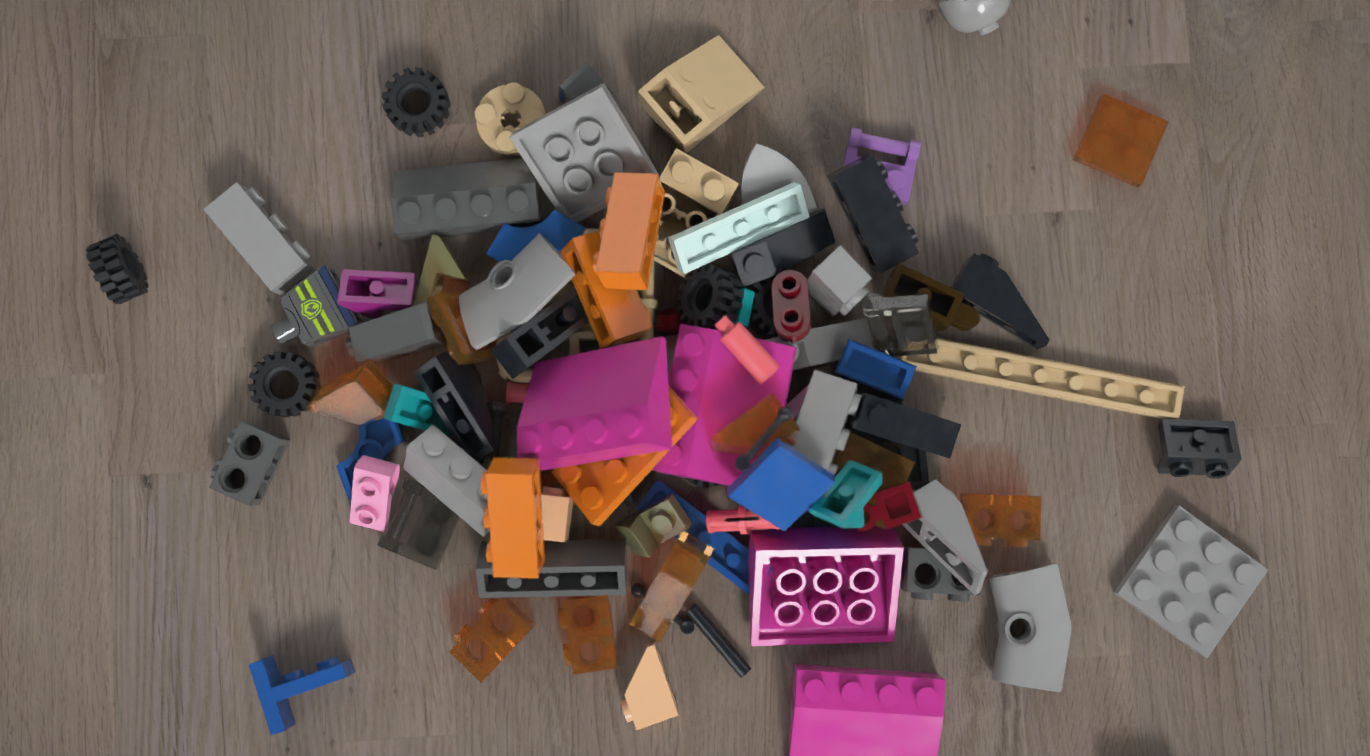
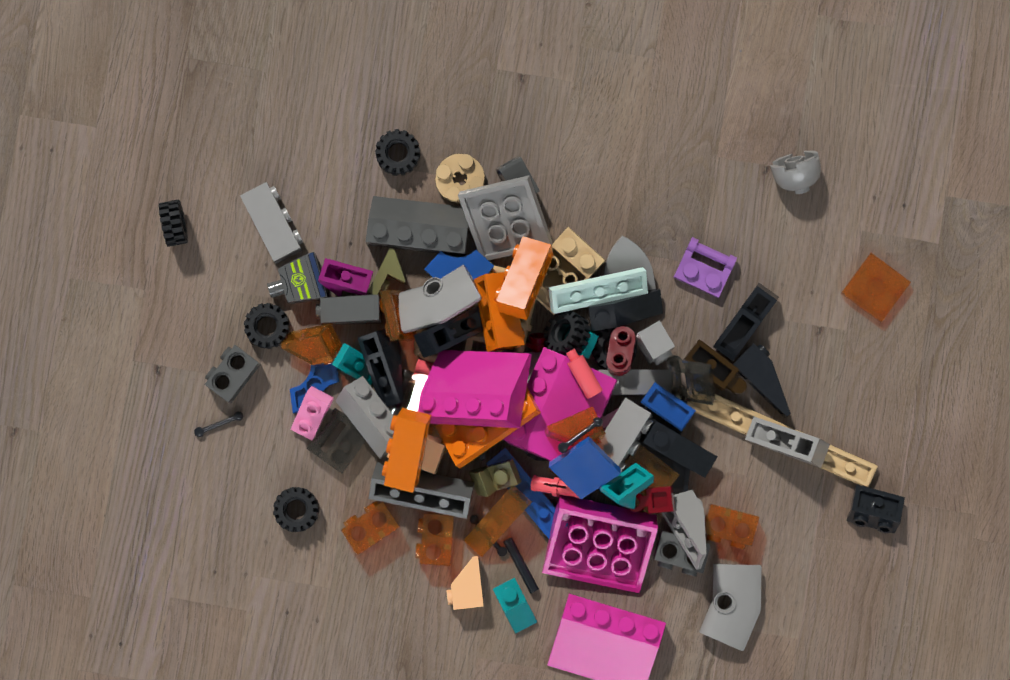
camera: 15 degrees right, 0 degrees up
(223, 555) = (199, 431): none -> black hinge
(275, 694) = (230, 528): blue bracket -> none
(360, 641) = (282, 502): none -> black tyre
(698, 93) = (593, 190): tan slope -> none
(722, 699) = (514, 605): none -> teal slope
(874, 213) = (692, 300): black brick -> none
(954, 227) = (746, 321): none -> black slope
(1055, 380) = (787, 441): none -> light grey slope
(1191, 581) = (850, 598): light grey plate -> none

